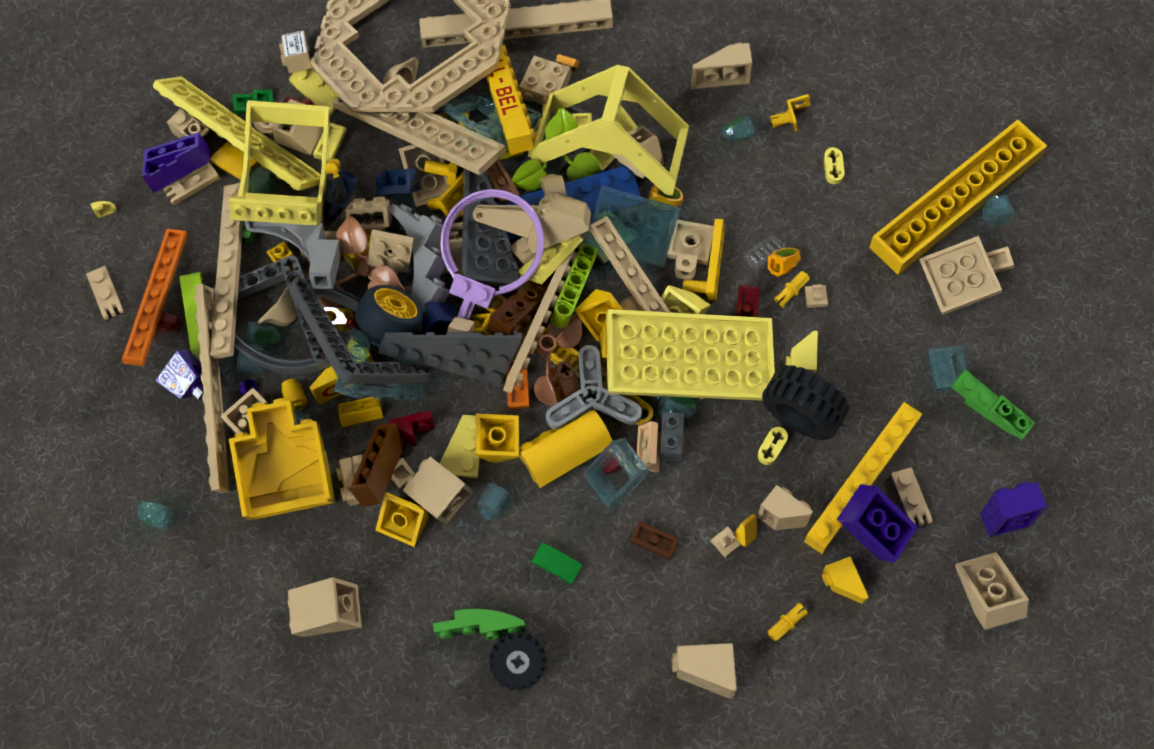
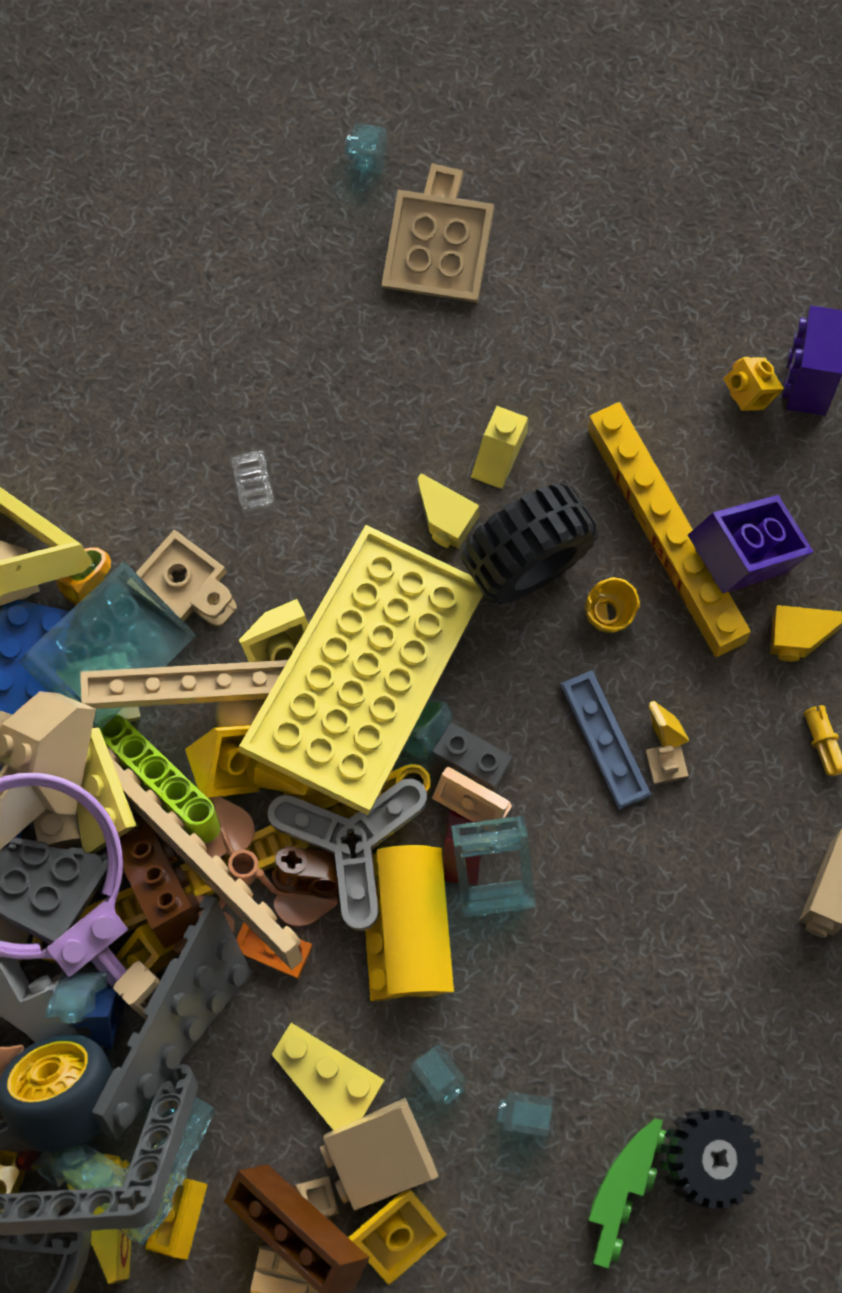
camera: 60 degrees left, 5 degrees up
(414, 424) = (246, 1147): dark red slope -> none
(440, 299) = (76, 996): none -> clear light blue slope
(494, 555) = (525, 1114): none -> clear light blue brick
(497, 437) = (341, 1017): yellow slope -> none
(556, 563) = (581, 1025): green slope -> none
(654, 540) = (616, 863): reddish brown plate -> none
(710, 286) = (265, 585): yellow piece -> none
(722, 503) = (605, 740): none -> sand blue tile
(739, 129) = (37, 415): clear light blue rock -> none
(747, 301) = (322, 546): dark red slope -> none
(768, 443) = (561, 621): light yellow beam -> none
(783, 261) = (283, 464): light orange rock -> none
(784, 511) = (663, 660): tan slope -> none
(788, 116) = (58, 336): yellow bracket -> none
(792, 288) = (331, 475): yellow axle -> none
(796, 462) = (618, 594): none -> yellow hair
(816, 296) = (359, 449): tan tile -> none
(838, 165) = (169, 326): light yellow beam -> none
(859, 366) = (500, 447): none -> light yellow slope
(911, 495) = (720, 482): tan hinge -> none
(942, 365) = (559, 342): clear light blue plate -> none
(957, 197) = (320, 188): yellow brick -> none
(981, 484) = (753, 383): none -> yellow brick
(994, 408) = (648, 310): bright green slope -> none

